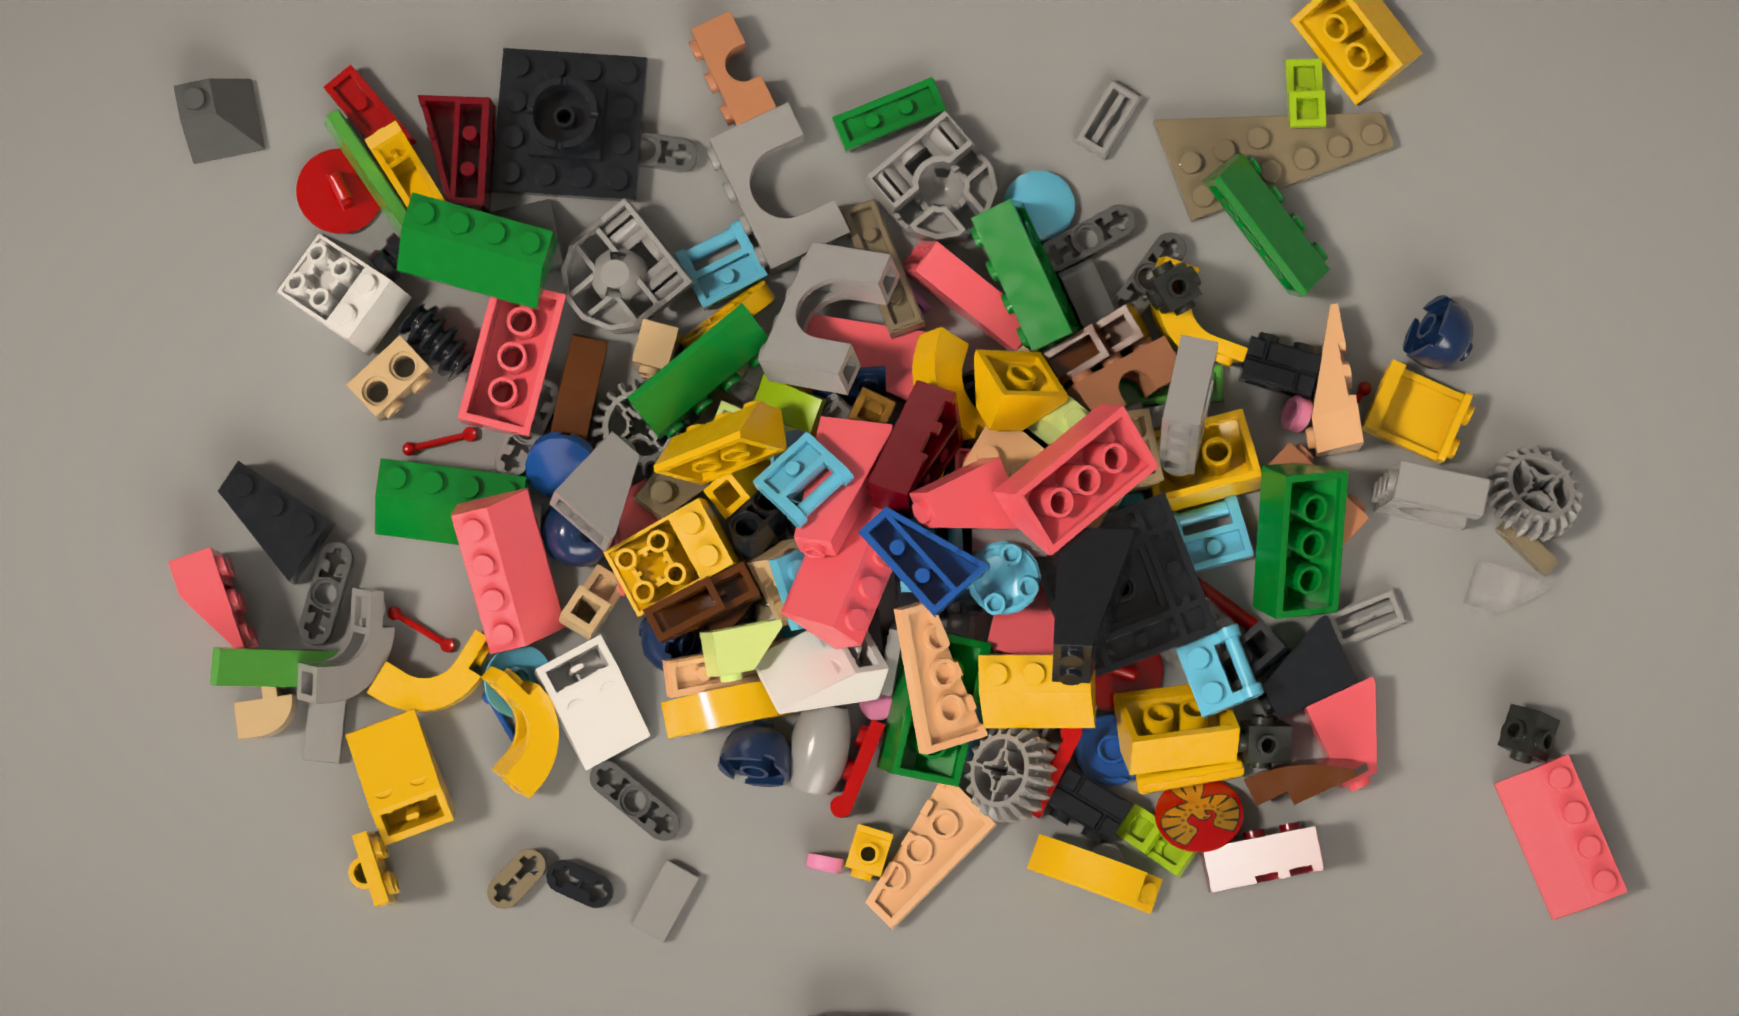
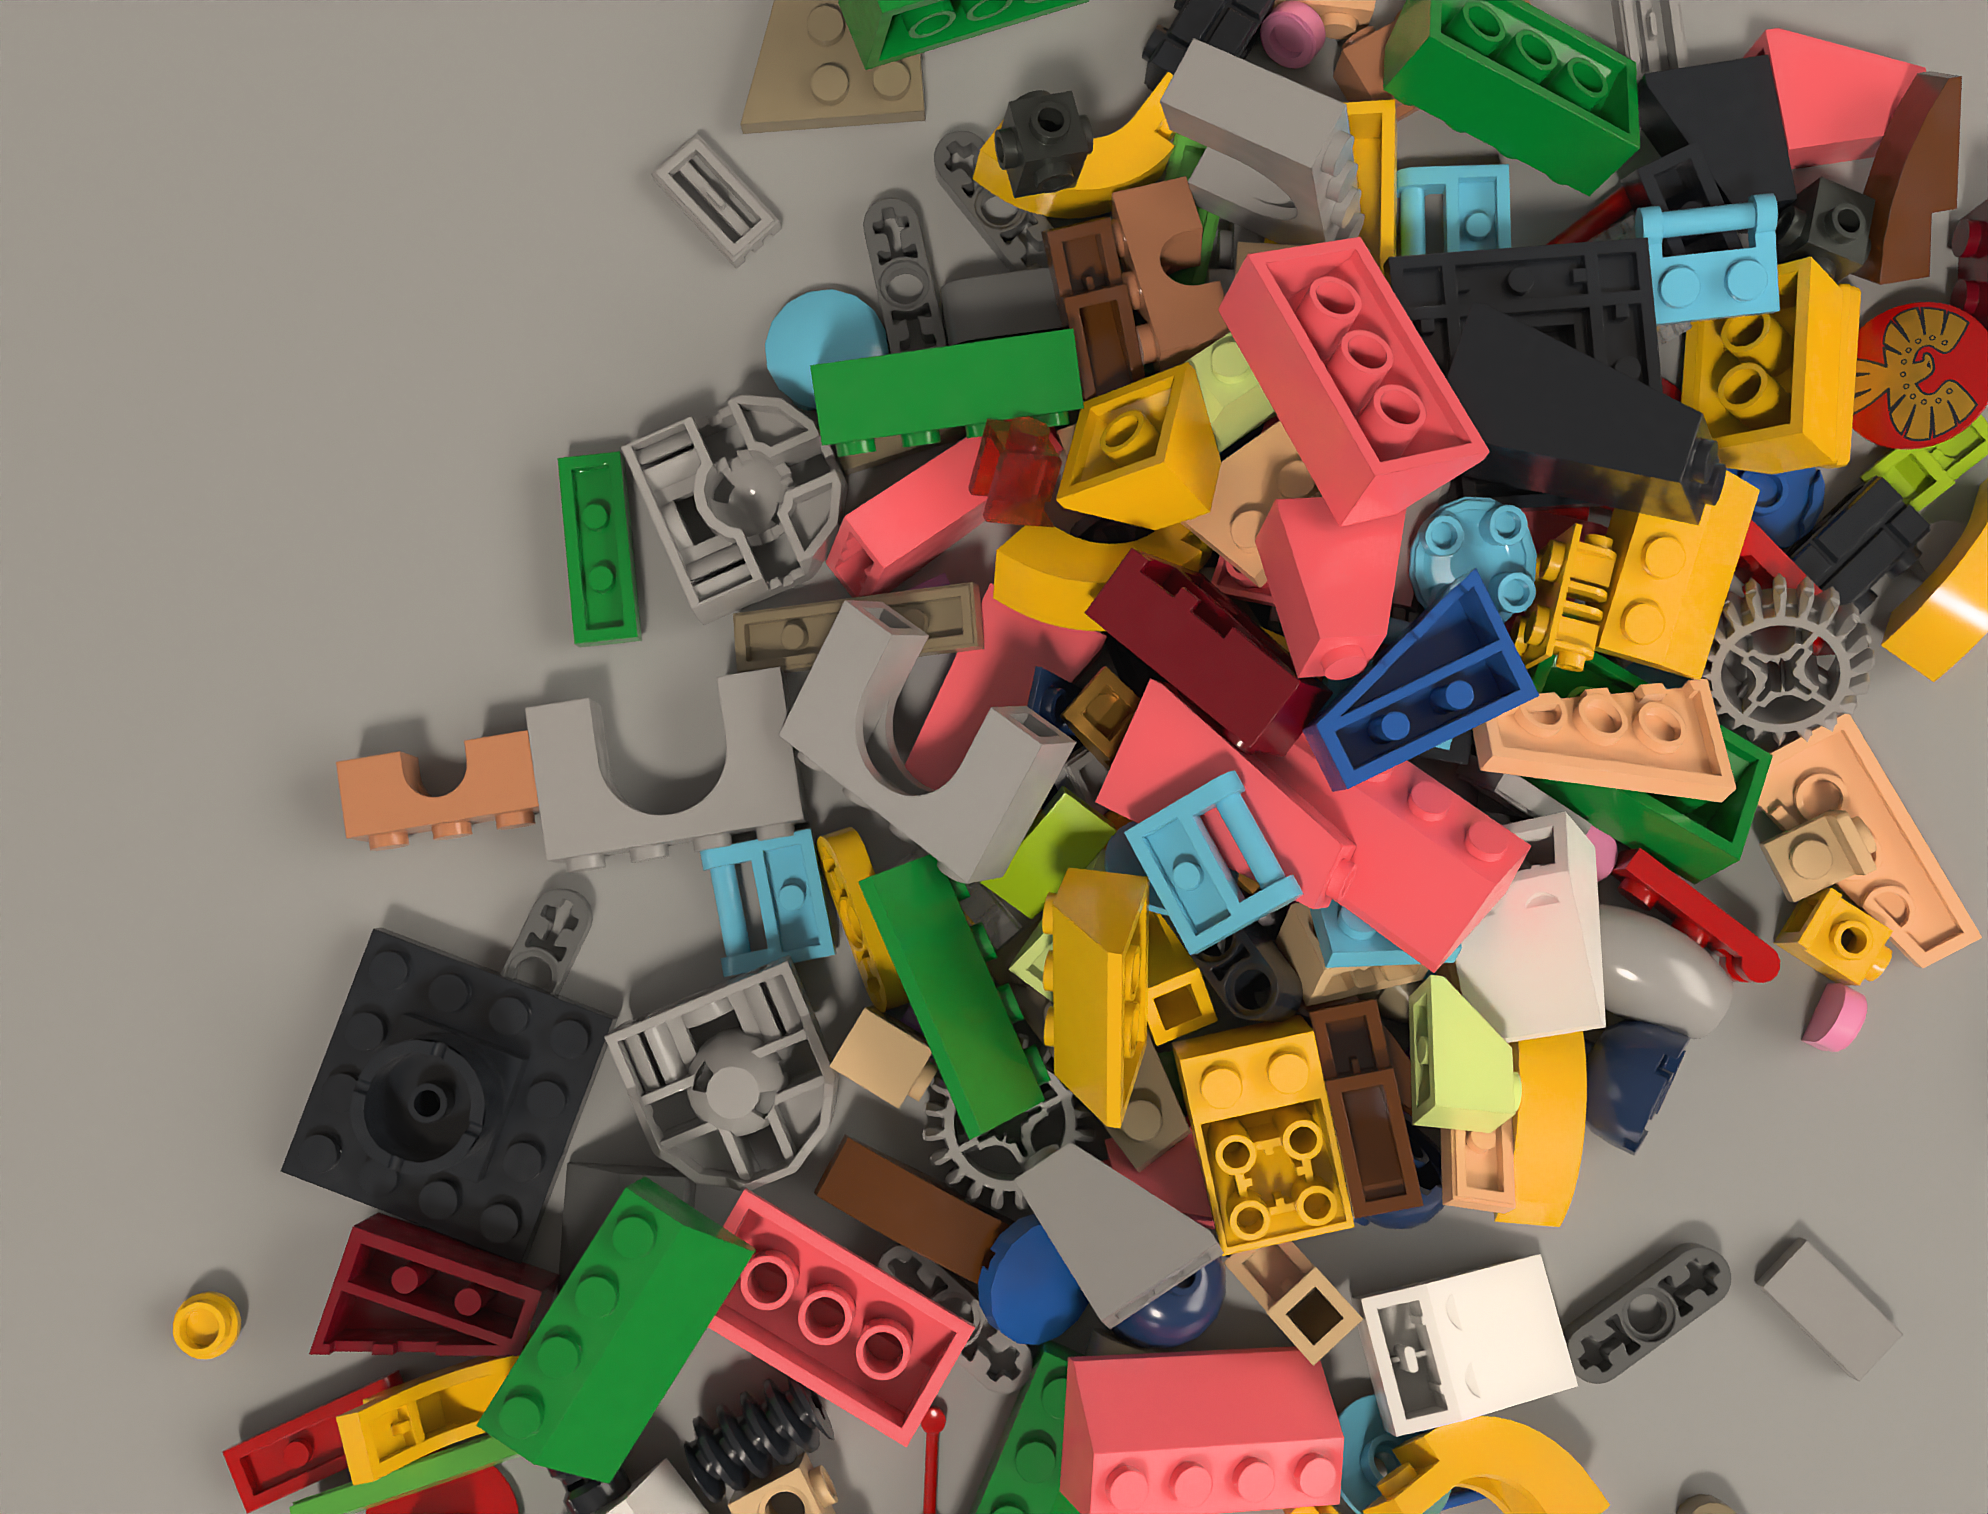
camera: 70 degrees left, 0 degrees up
(411, 34) = (206, 1325): none -> yellow plate
(576, 892) = (1768, 1453): black beam -> none
(911, 826) = (1820, 853): none -> tan bracket
(980, 638) = (1564, 571): none -> yellow hinge
(986, 326) = (1016, 471): none -> clear red window

